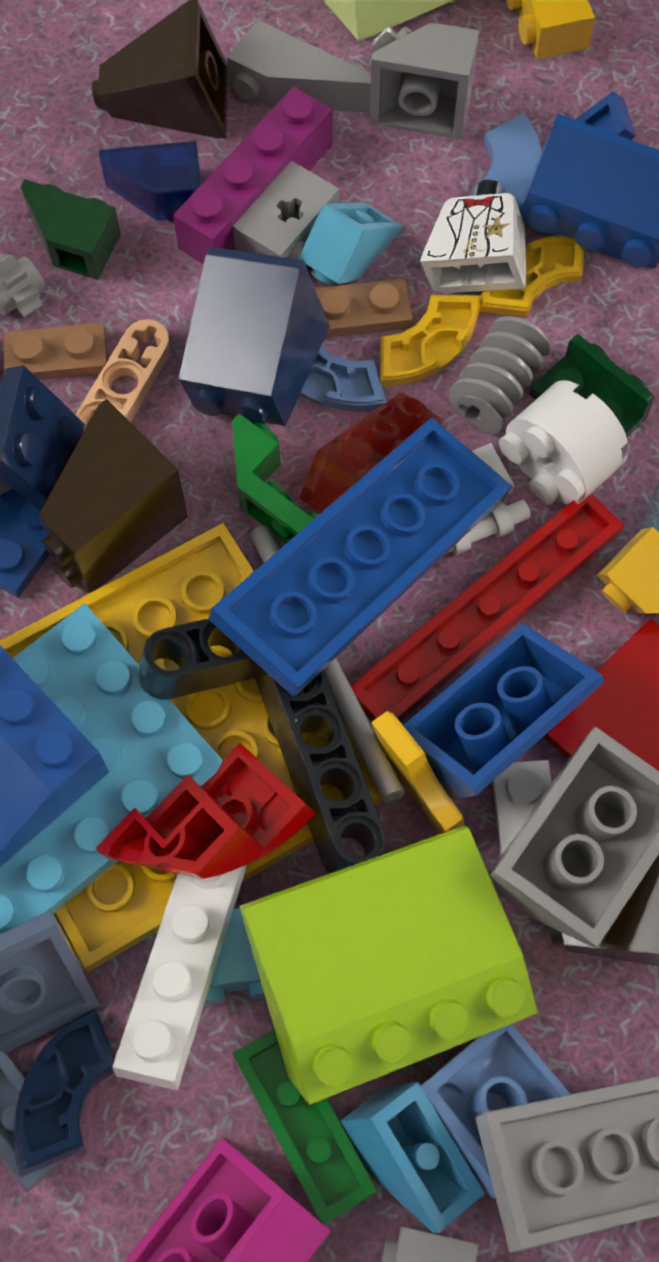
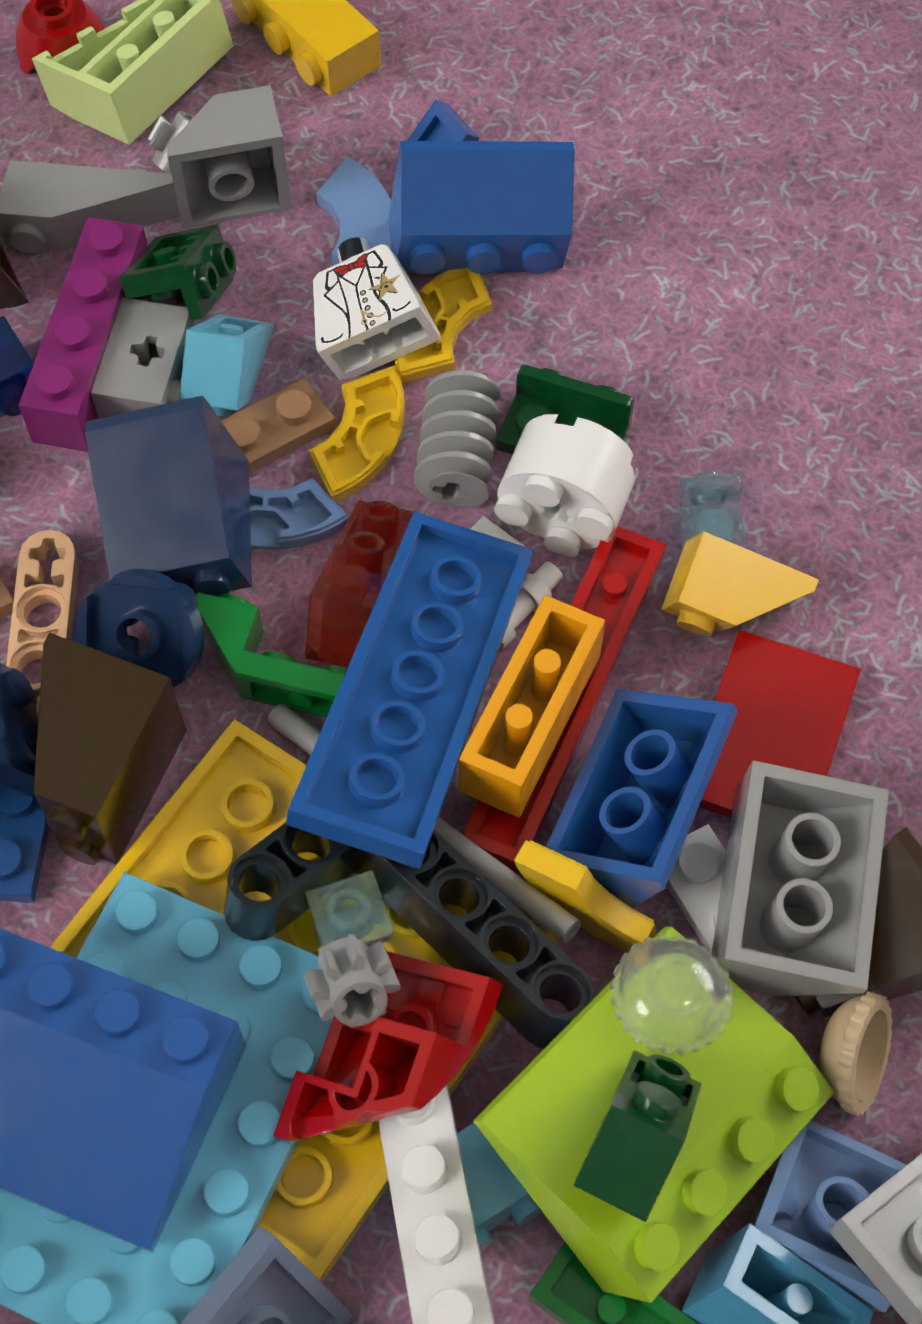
camera: 25 degrees left, 5 degrees down
(202, 759) = (352, 981): none -> light grey gear
(207, 418) = (162, 605): none -> dark blue plate
(228, 709) = (349, 908): none -> clear light blue bracket
(353, 152) = (183, 262): none -> dark green bracket
(354, 974) = (640, 1134): none -> dark green slope
(440, 880) = (672, 994): none -> clear hat
(447, 607) = (531, 706): none -> light orange brick
(574, 989) = (857, 1050): none -> tan hat

